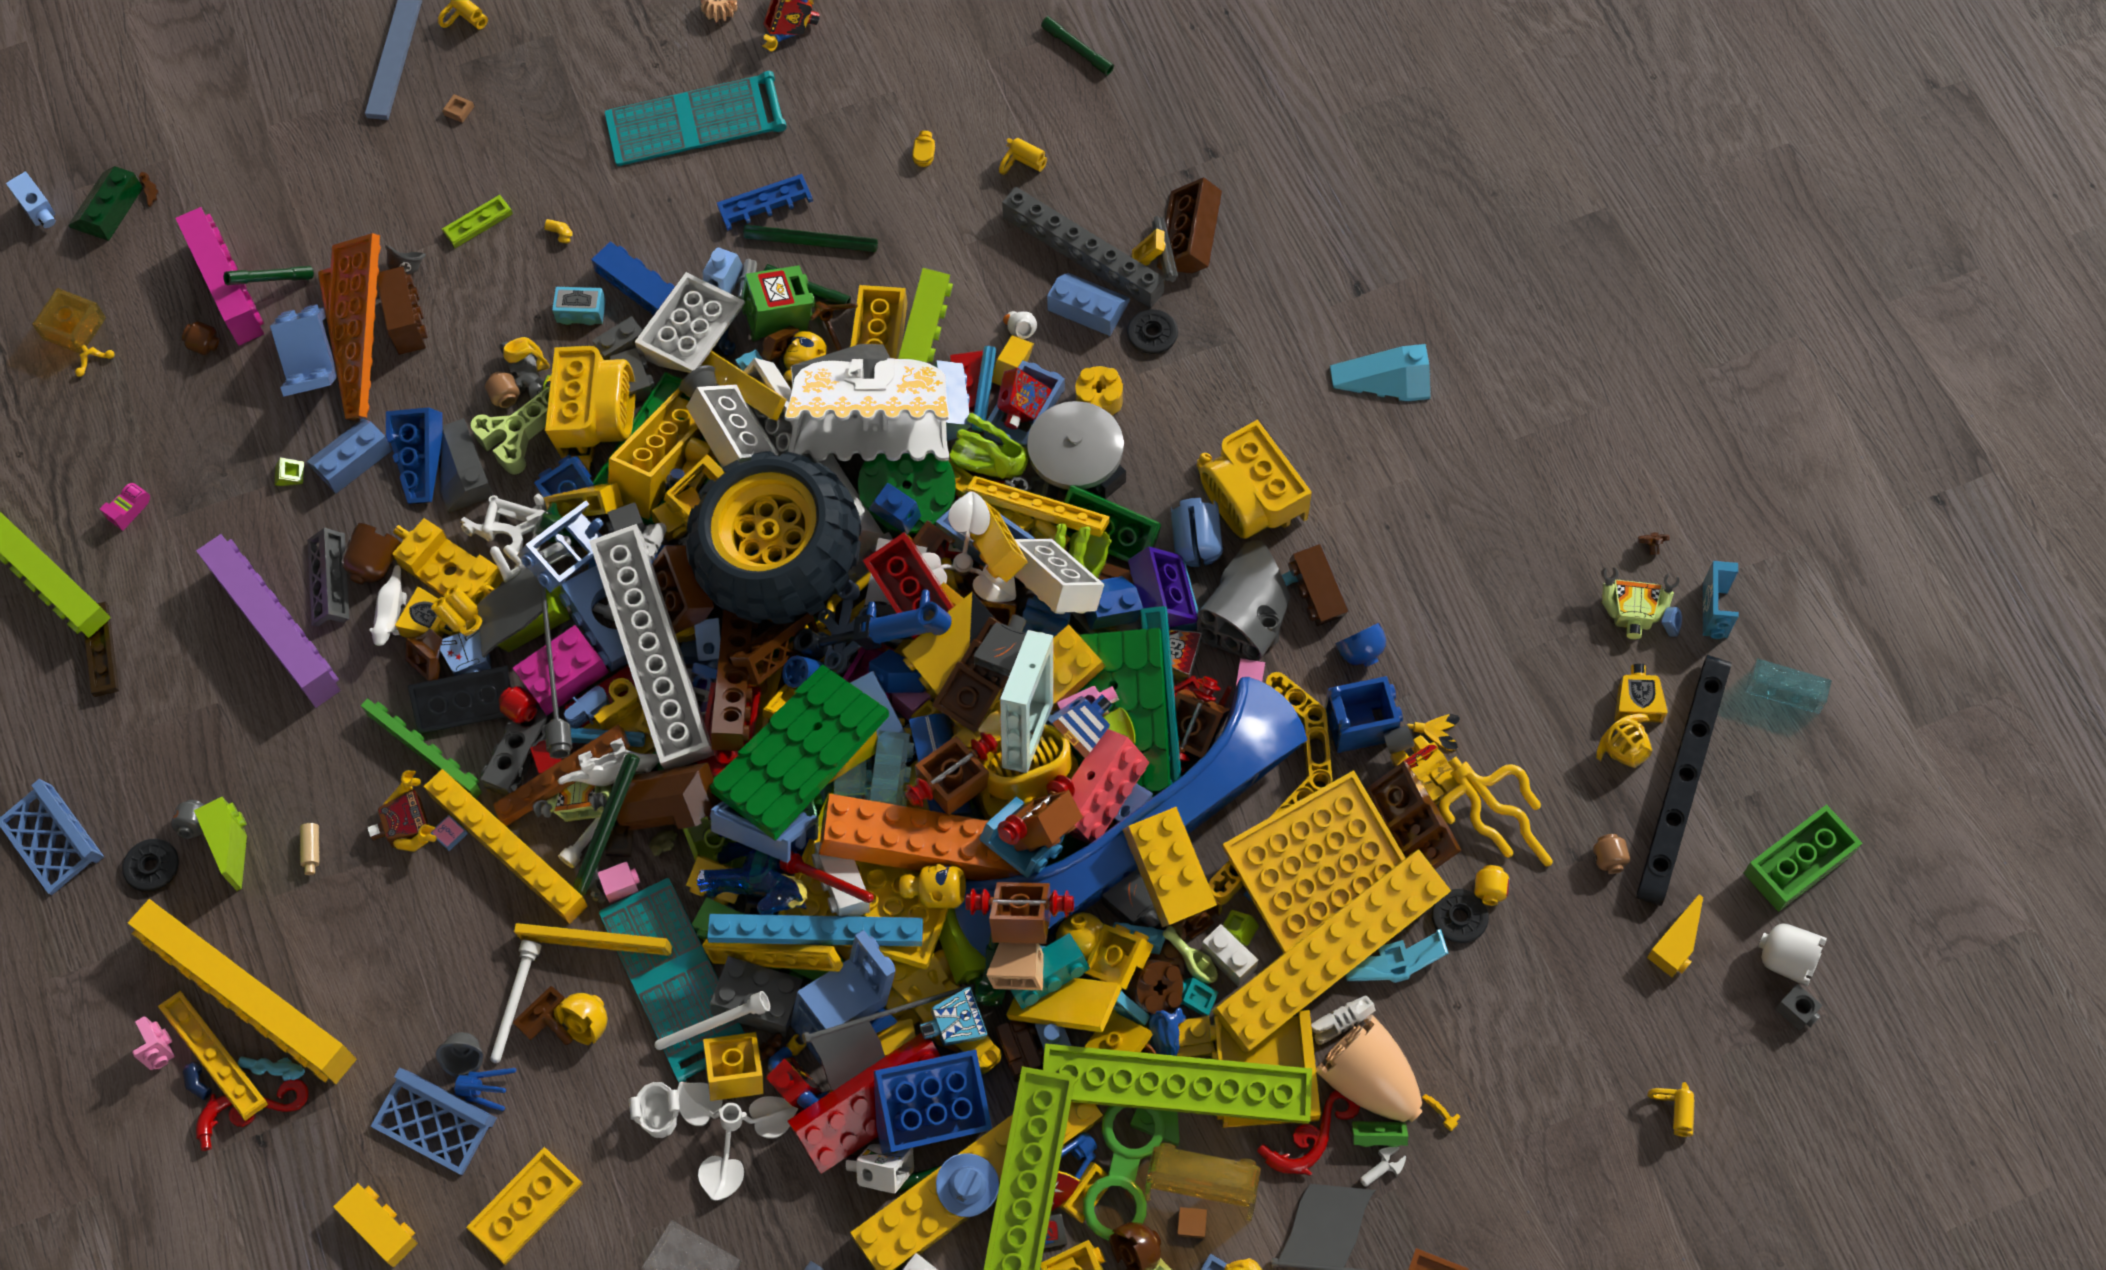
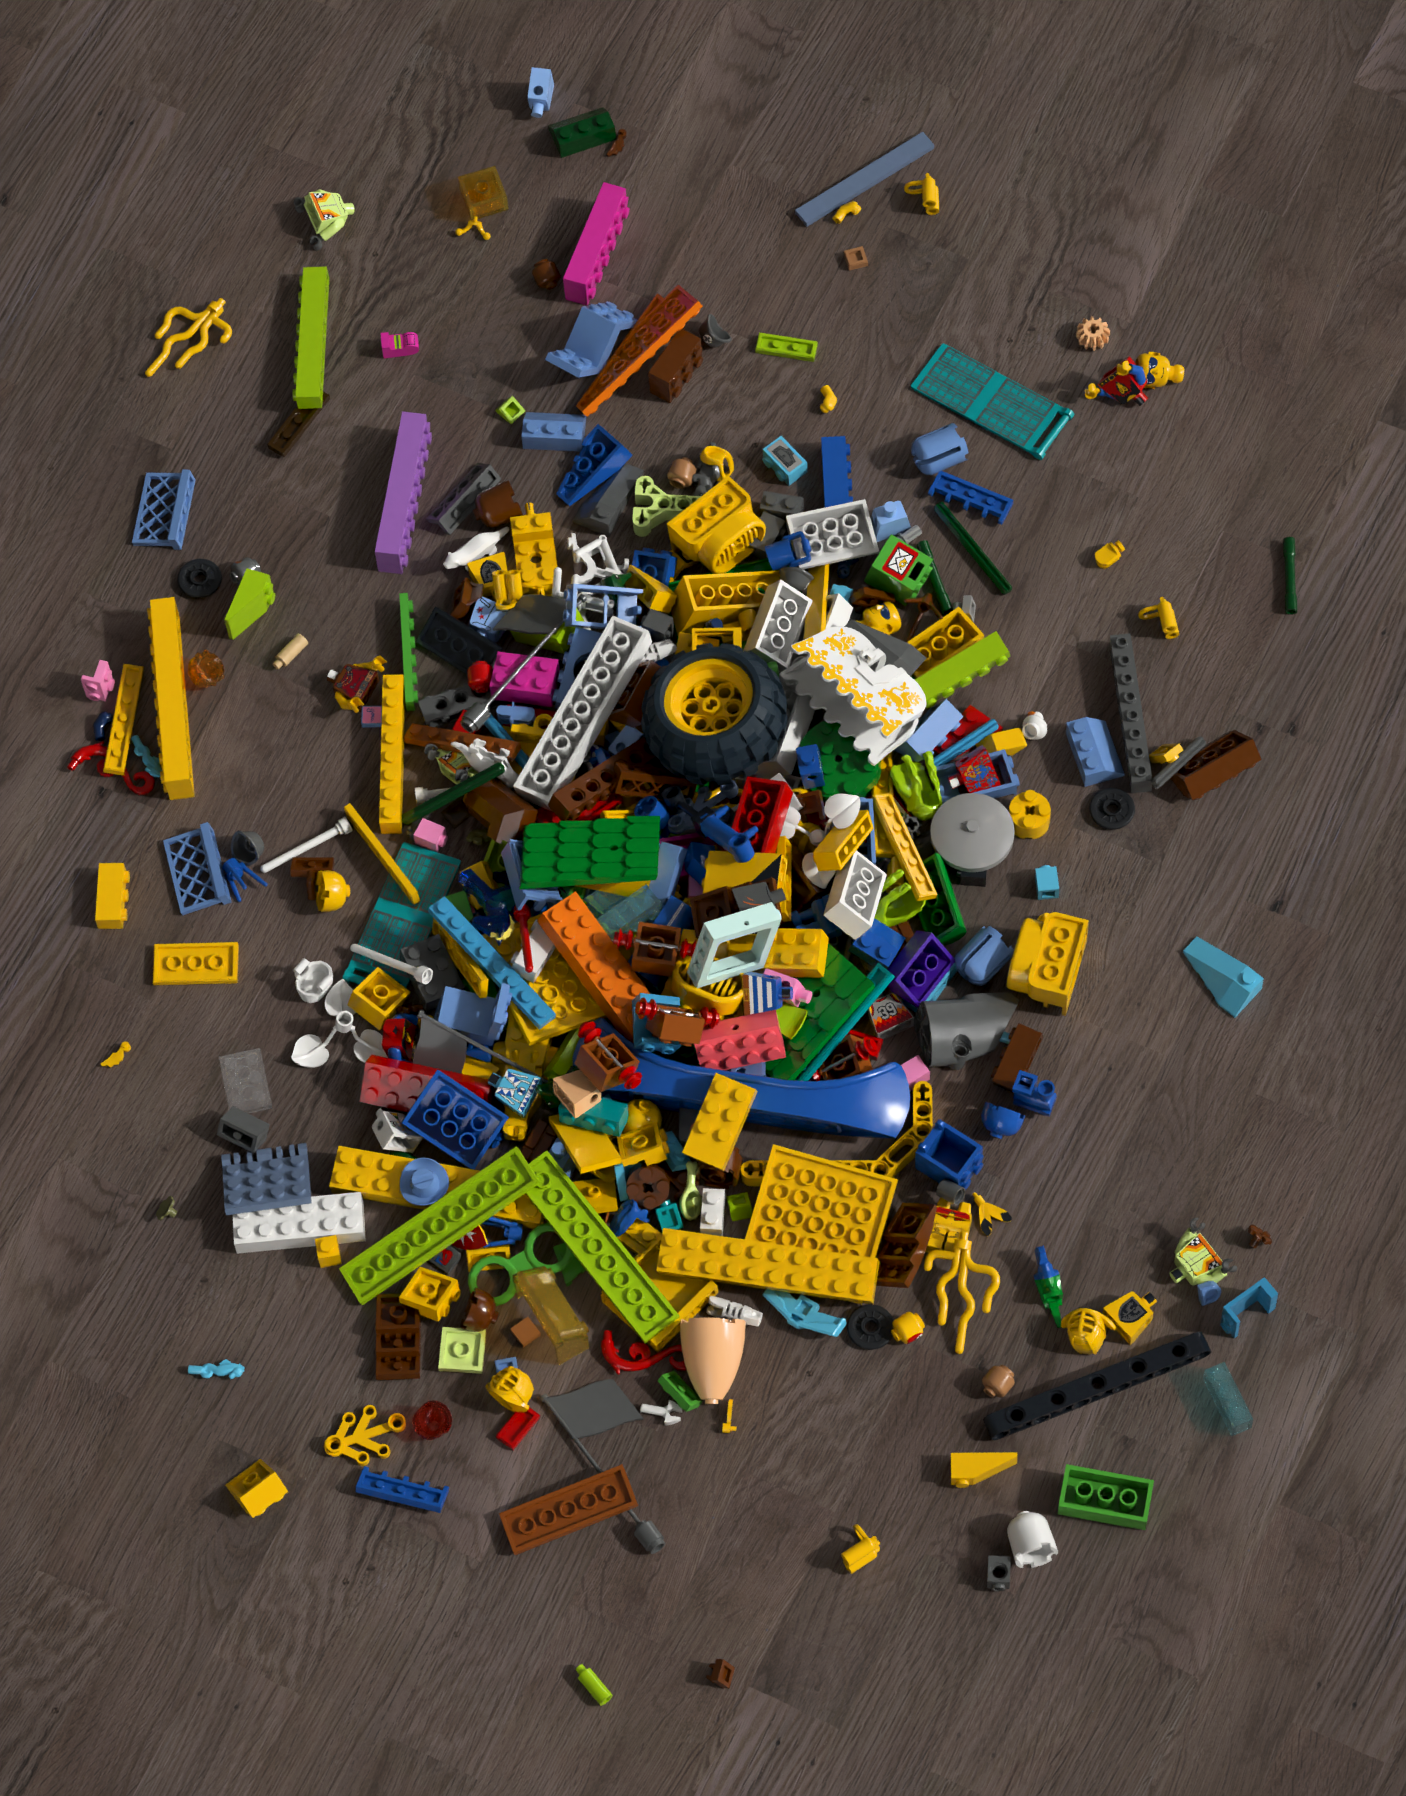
camera: 50 degrees right, 0 degrees up
(244, 277) = (602, 259): dark green piece -> none
(246, 937) = (205, 669): none -> clear orange hair
(406, 80) = (845, 209): none -> yellow arm
(667, 372) = (782, 554): none -> blue piece
(700, 185) = (939, 450): none -> medium blue cylinder
(858, 280) = (968, 606): none -> light grey tile
(935, 886) = (582, 1003): yellow piece -> none
(1173, 431) = (1046, 882): none -> medium azure brick
(1368, 599) = (1034, 1098): none -> blue hips
(1551, 737) = (1048, 1284): none -> green animal

